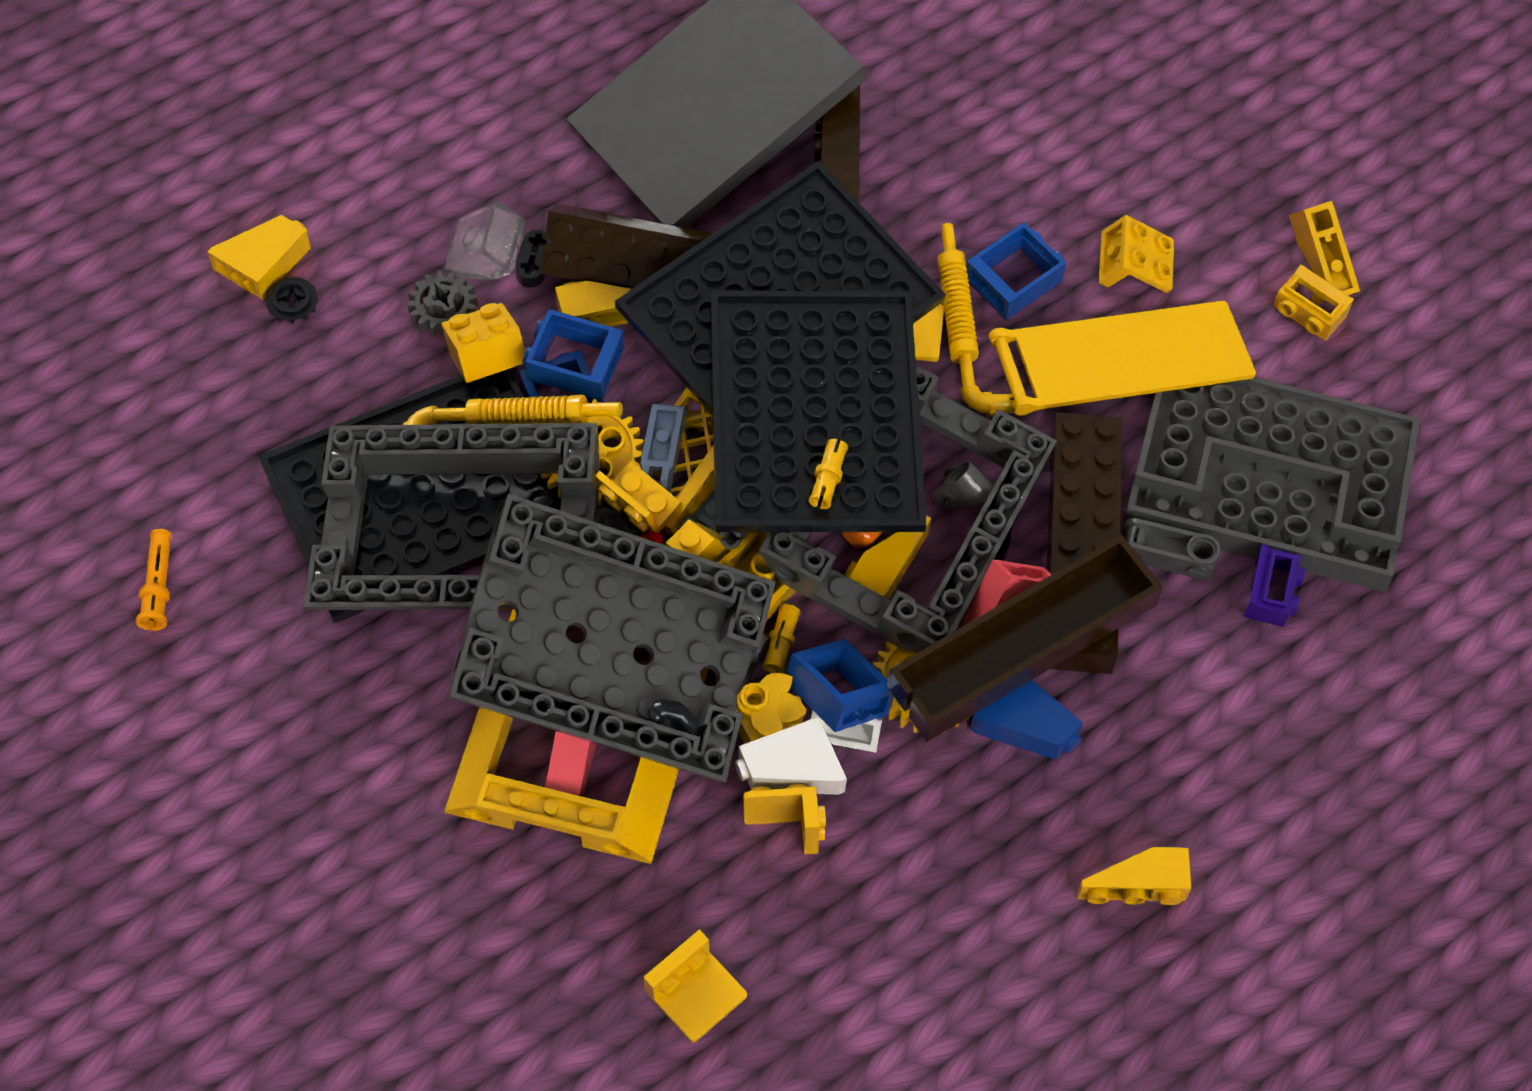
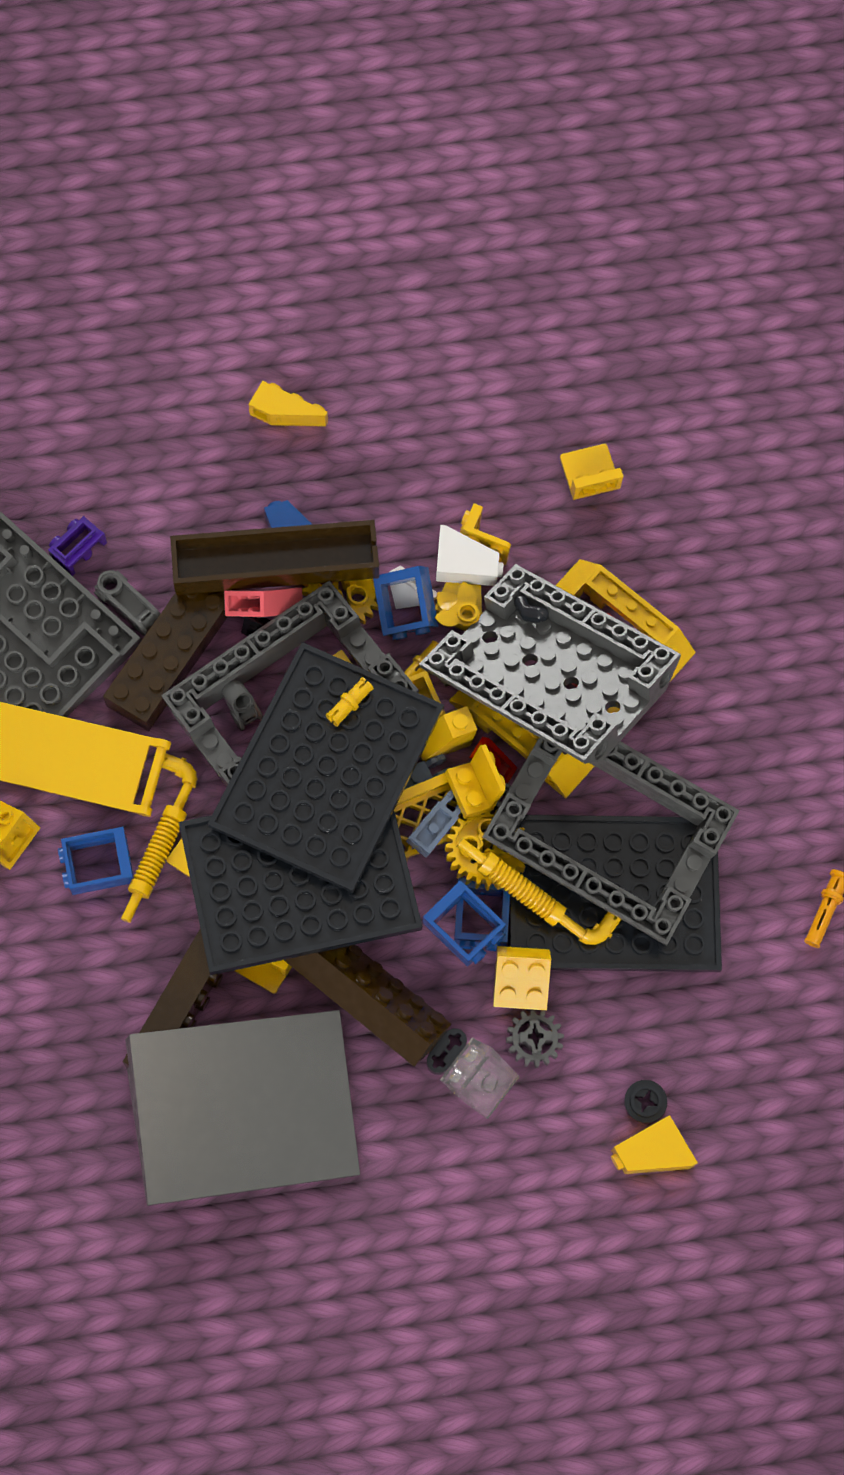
camera: 155 degrees left, 10 degrees up
(591, 301) = (423, 980): yellow slope -> none

